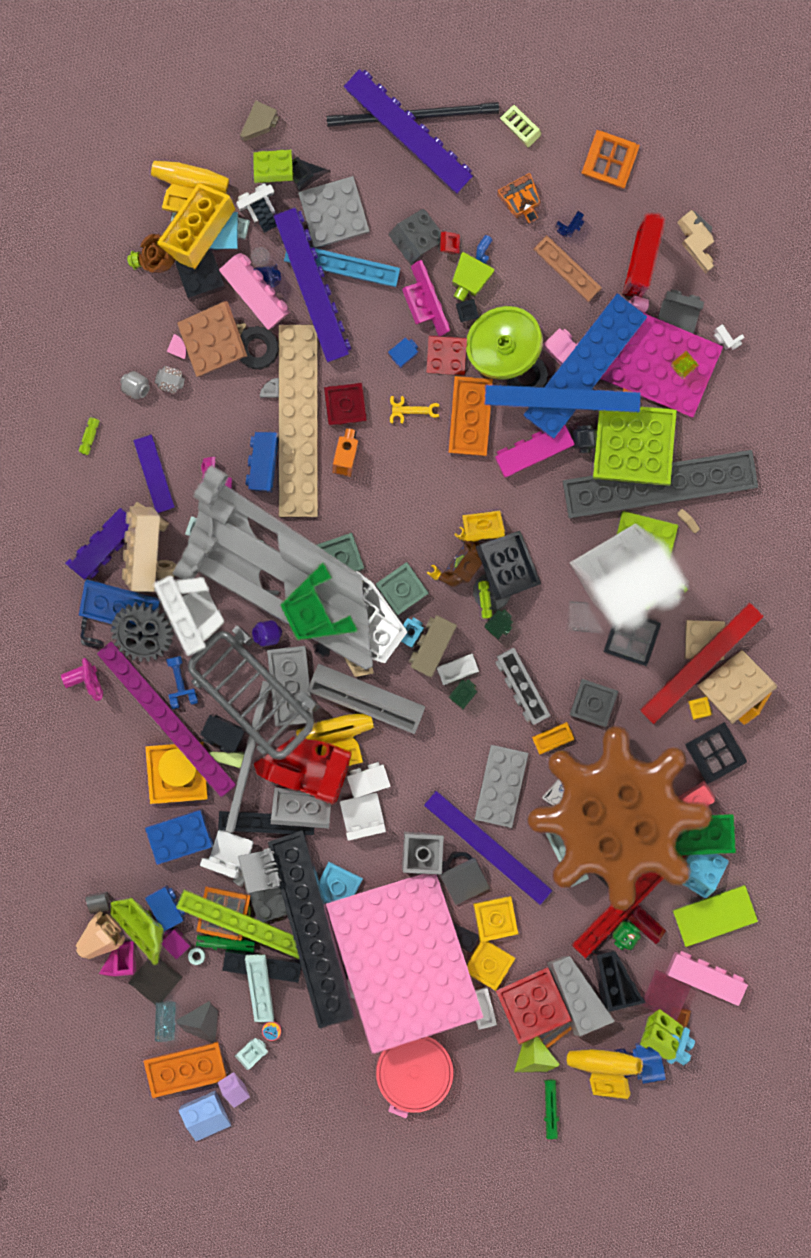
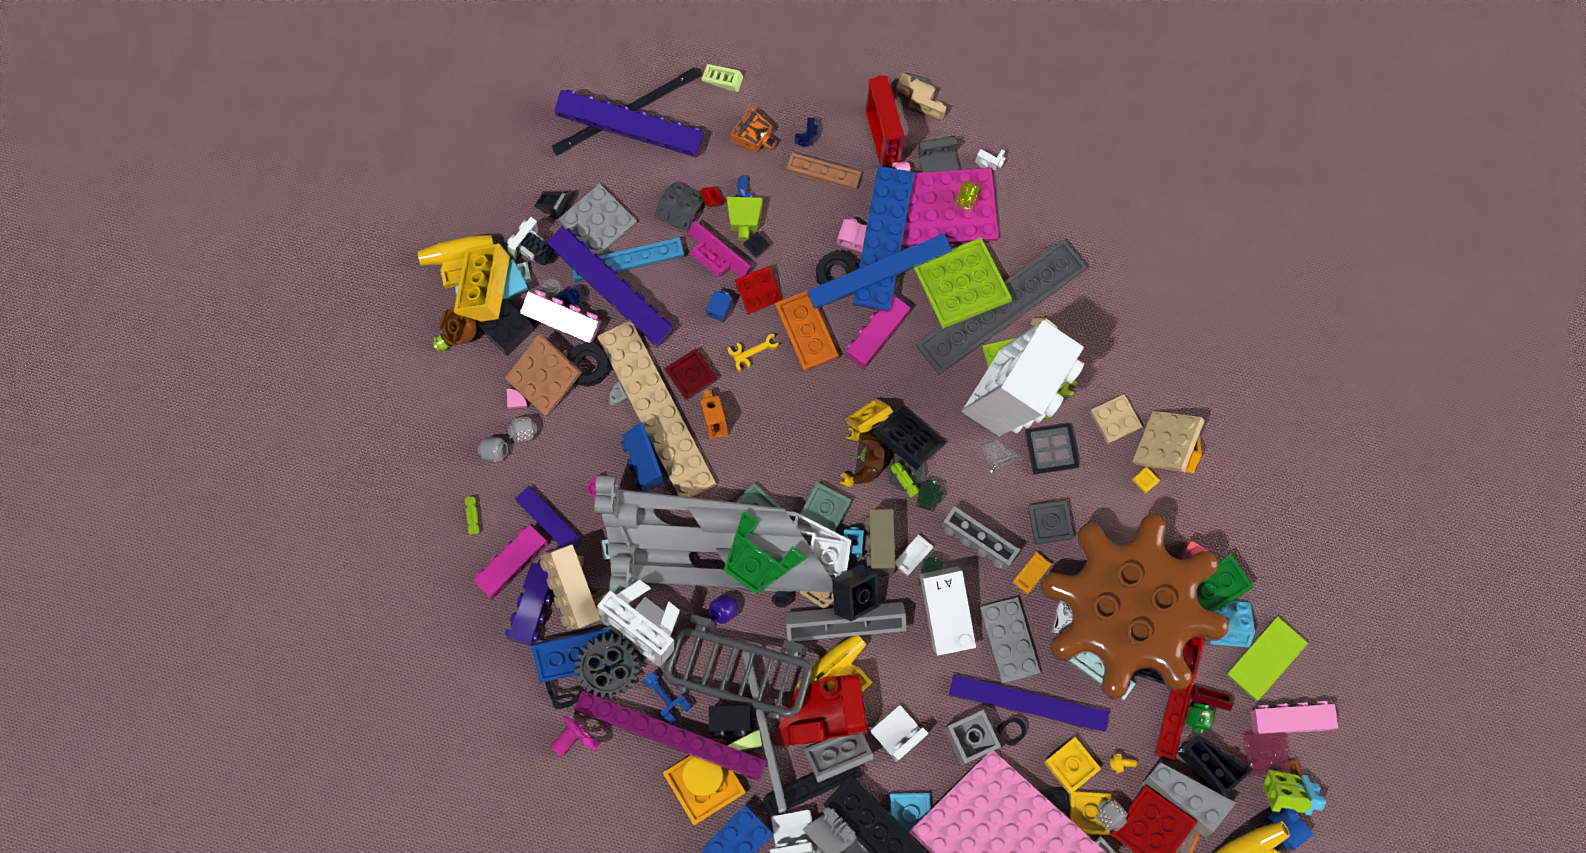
camera: 30 degrees left, 15 degrees down
(102, 496) = (510, 562): none -> dark pink brick
(259, 121) = (495, 177): dark tan slope -> none
(273, 166) = (525, 206): lime plate -> none
(291, 671) = (763, 631): light grey plate -> none
(368, 780) = (886, 697): white brick -> none
(386, 680) = (855, 592): none -> black brick
(458, 735) = (947, 610): none -> white brick
(465, 881) = (1025, 744): dark grey tile -> none
(504, 342) = (803, 253): lime dish -> none
(504, 977) = (1111, 815): none -> light grey head
(535, 936) = (1118, 763): none -> yellow plate
(584, 438) = (916, 299): black head -> none
(610, 159) = (812, 68): orange piece -> none
(701, 663) = (1125, 438): red tile -> none
(715, 753) = (1183, 511): black piece -> none

